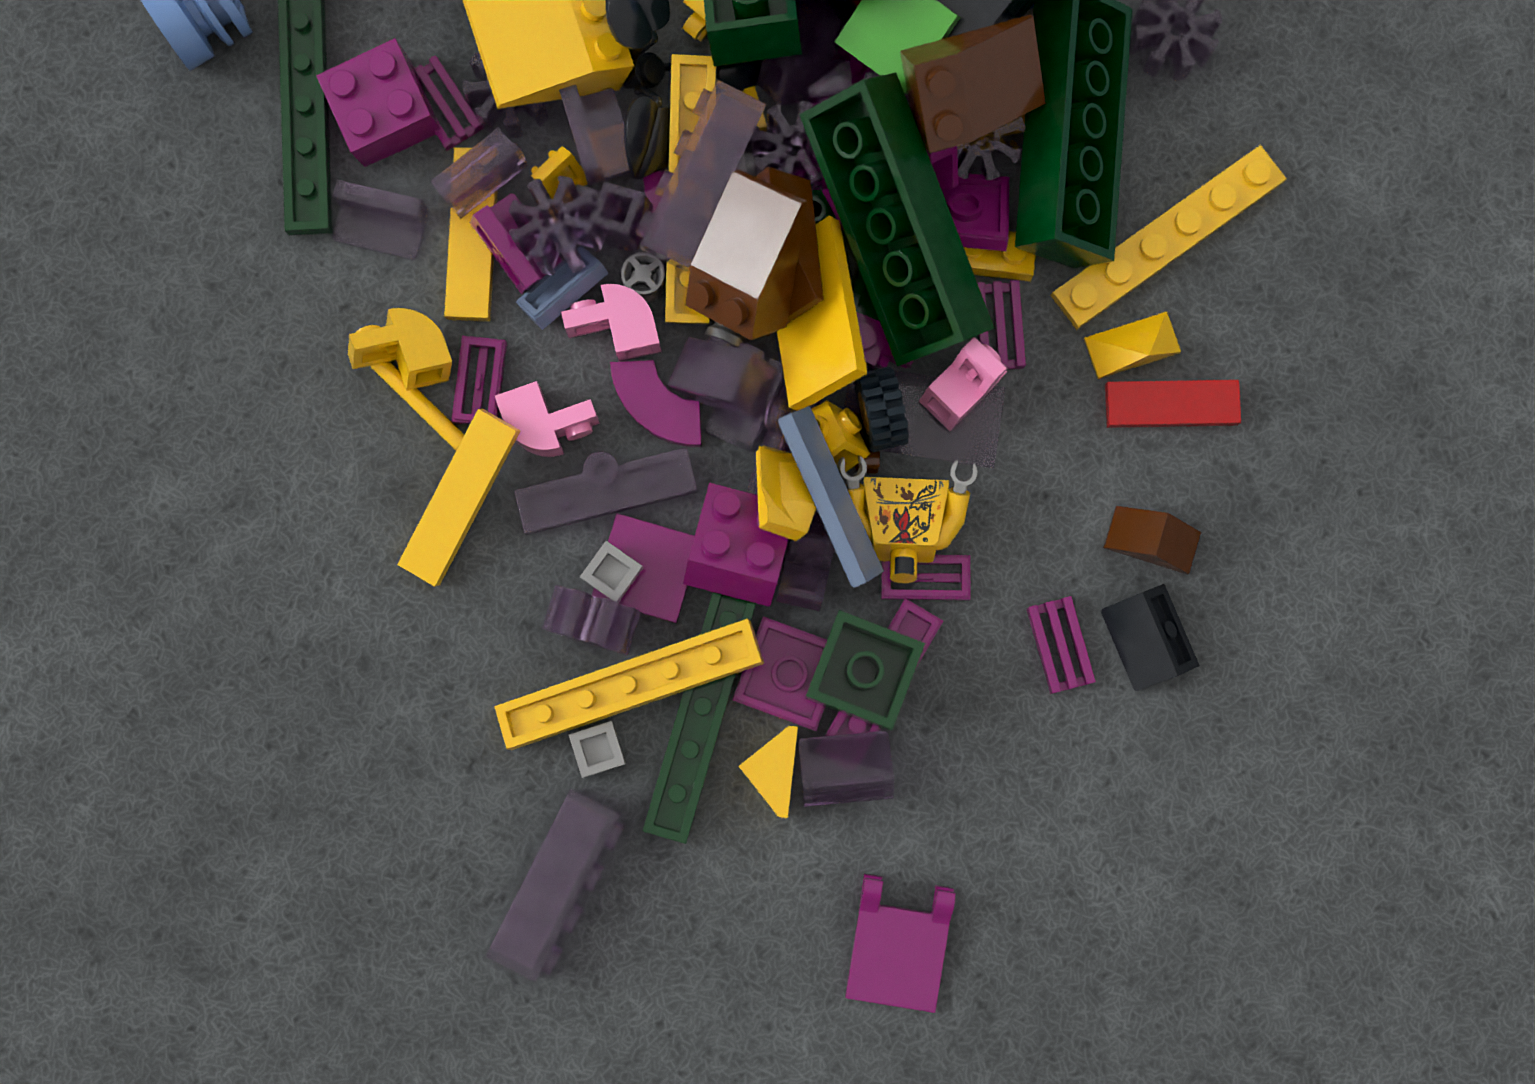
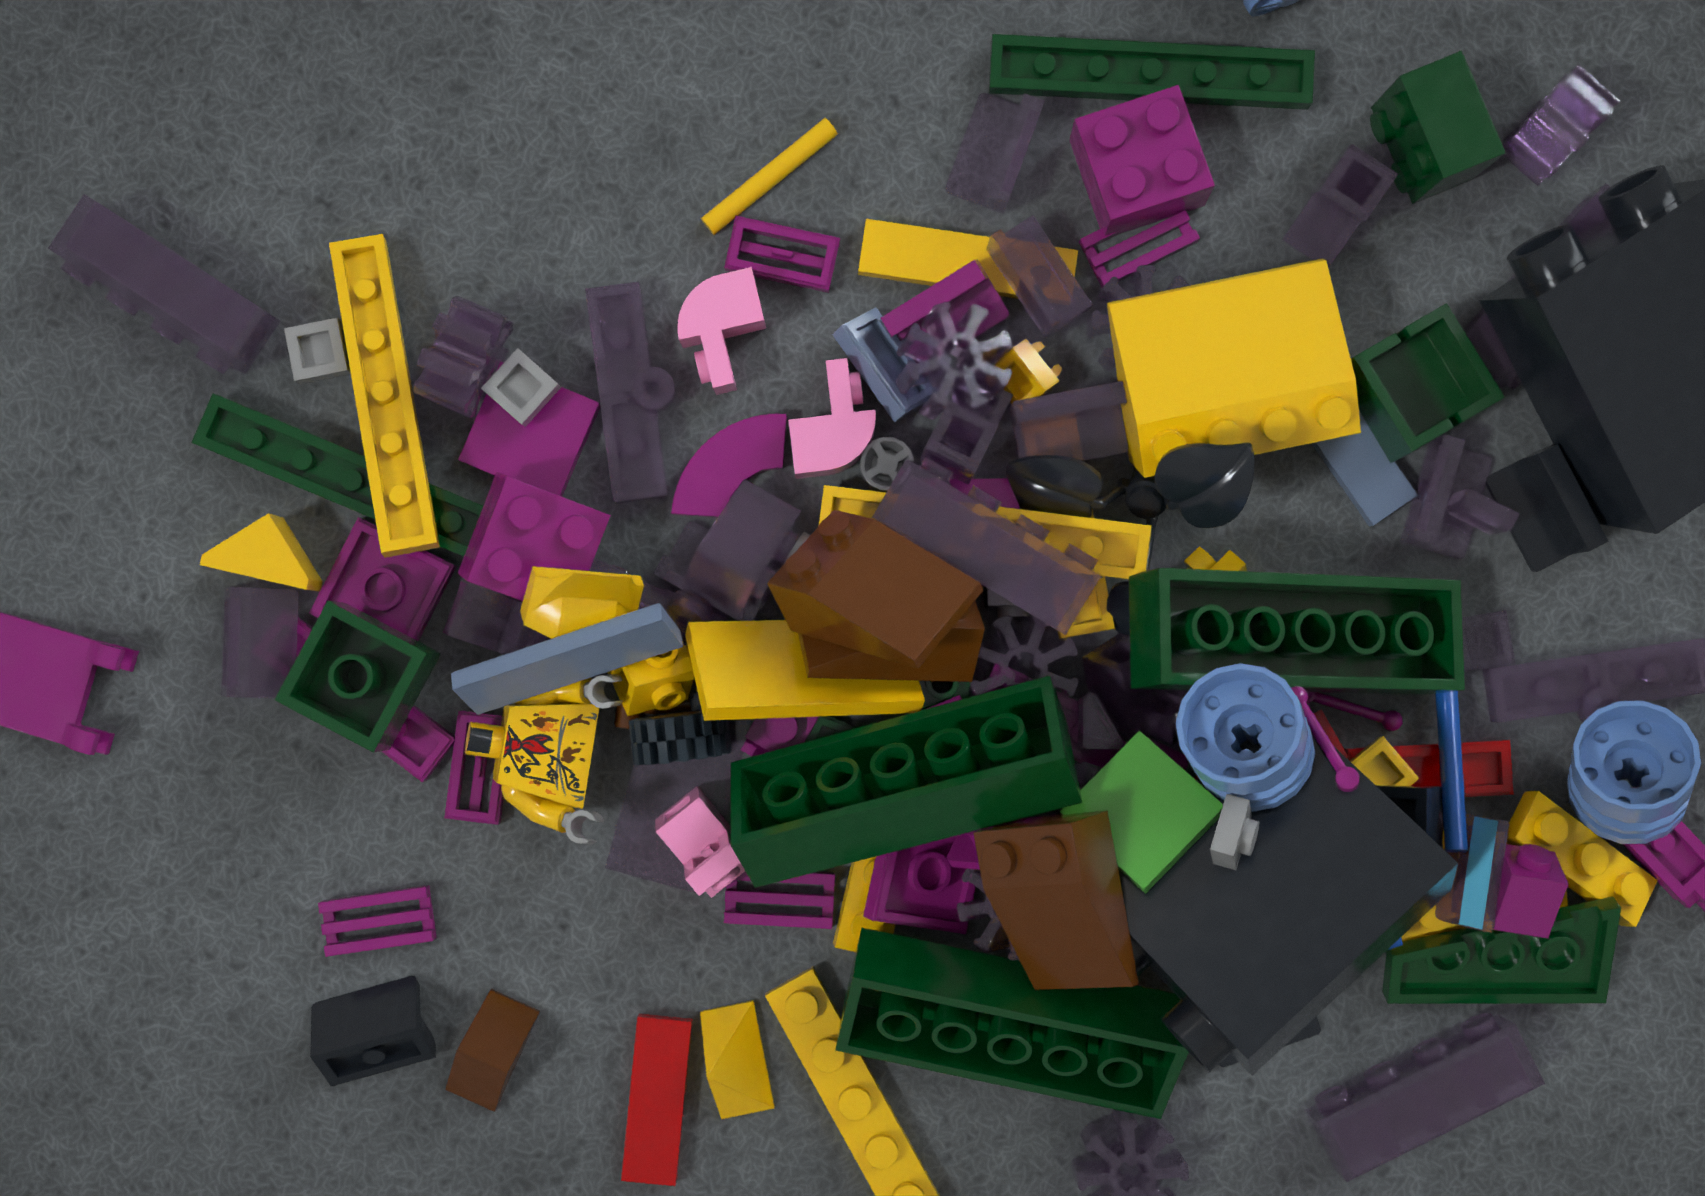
camera: 100 degrees right, 5 degrees up
(409, 340) = (836, 176): yellow brick -> none
(458, 497) = (636, 214): yellow tile -> none

